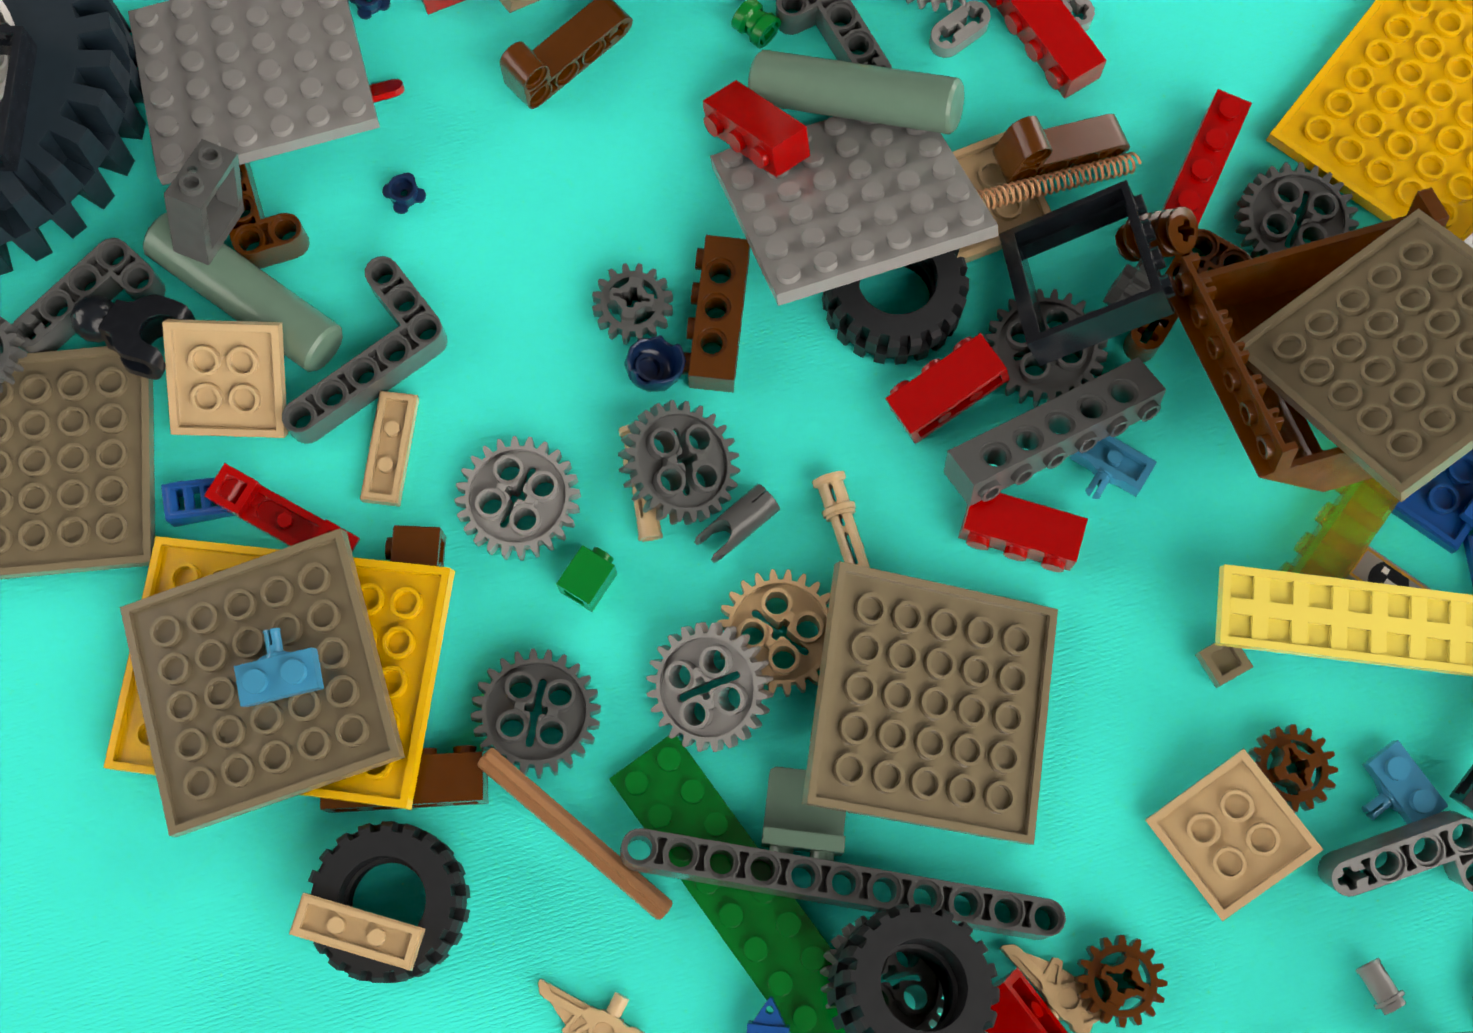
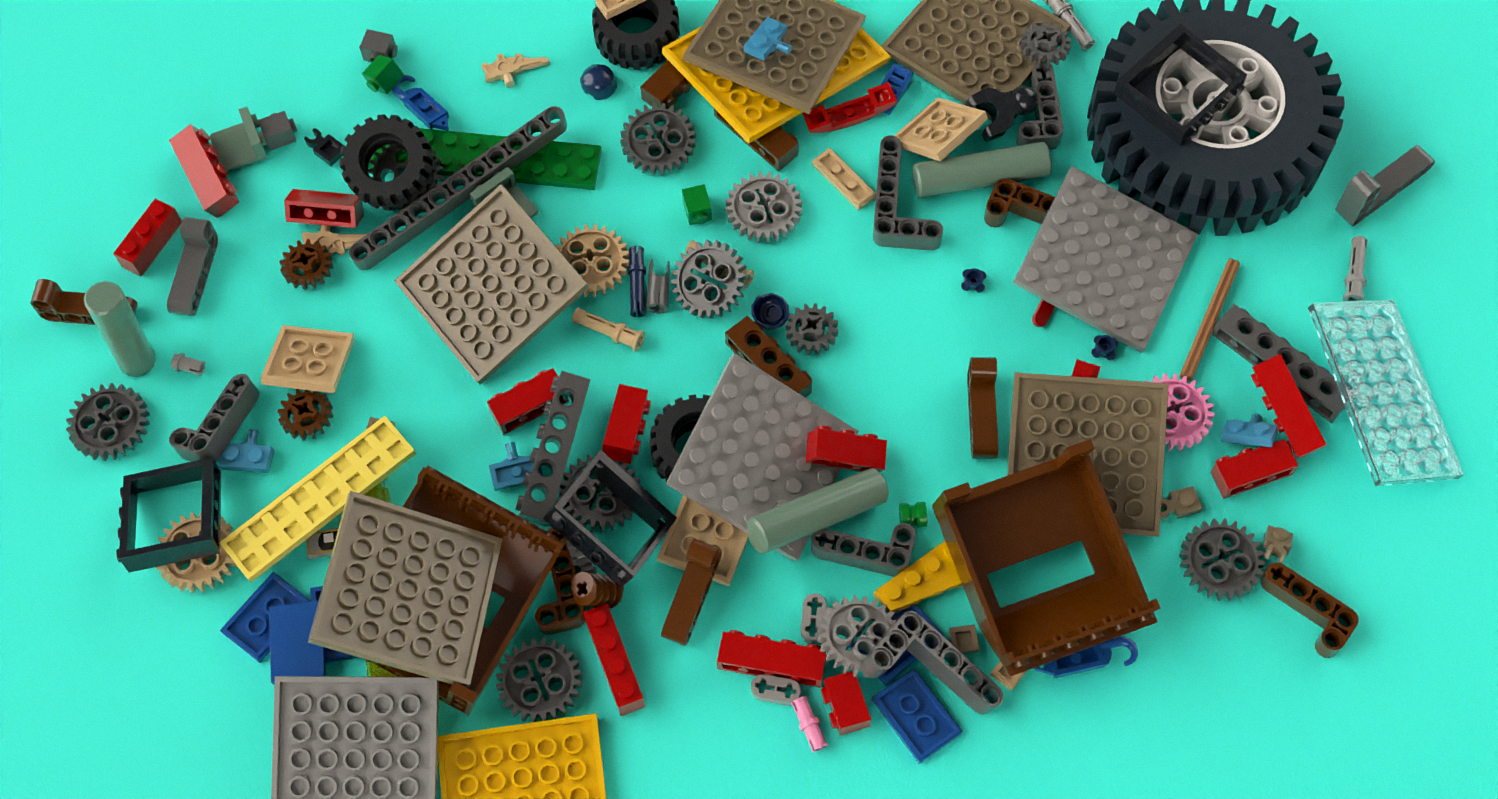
camera: 135 degrees right, 10 degrees down
(204, 203) = (1026, 167): dark grey window -> none
(514, 879) = (598, 81): none -> dark blue hair
(574, 833) = (607, 107): medium nougat axle -> none
(722, 720) = (595, 208): light grey gear -> none
(753, 555) = (636, 272): none -> dark blue pin
(1057, 178) = (659, 610): light nougat piece -> none

